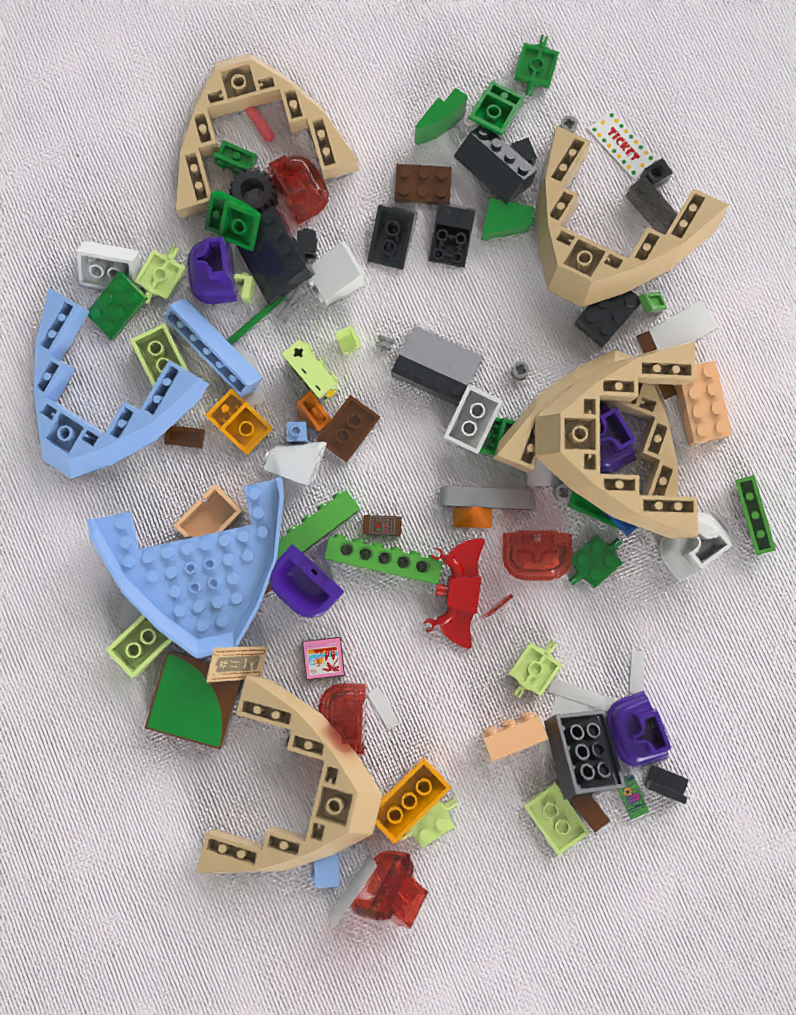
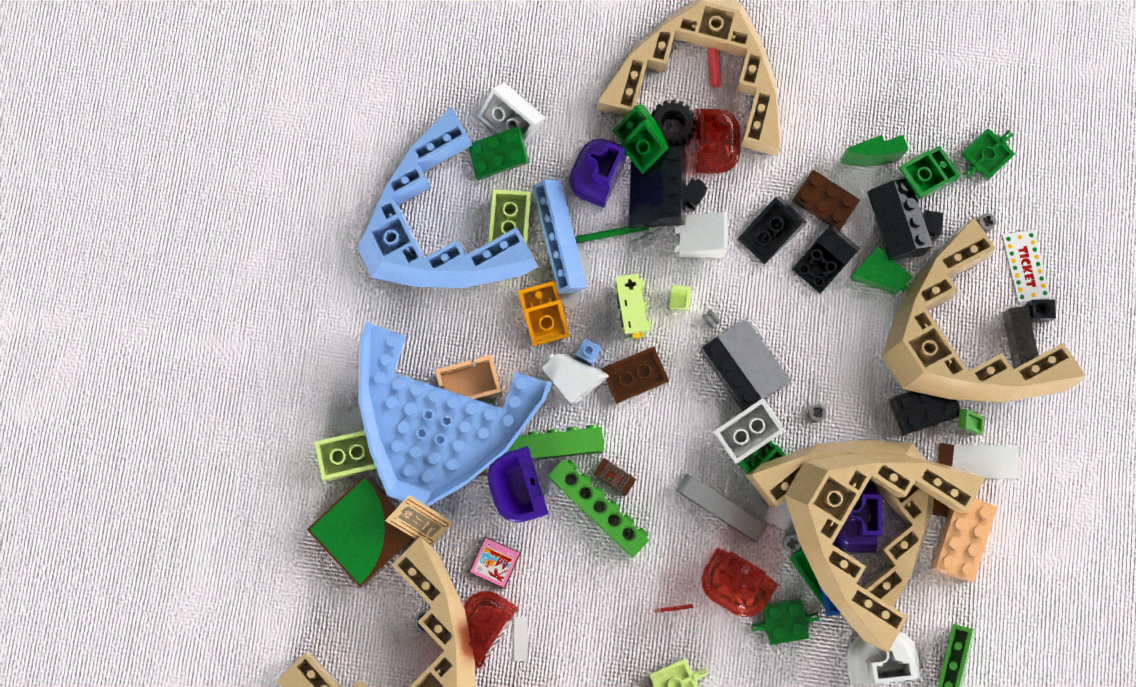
camera: 30 degrees right, 5 degrees down
(160, 274) = (551, 148): yellowish green plate -> none
(185, 437) = (489, 299): reddish brown tile -> none
(234, 158) = (674, 85): green bracket -> none
(246, 290) = (619, 203): yellowish green bracket -> none
(312, 412) = (612, 342): orange slope -> none
(460, 592) = (649, 576): red torso -> none
(472, 517) = (698, 517): orange slope -> none

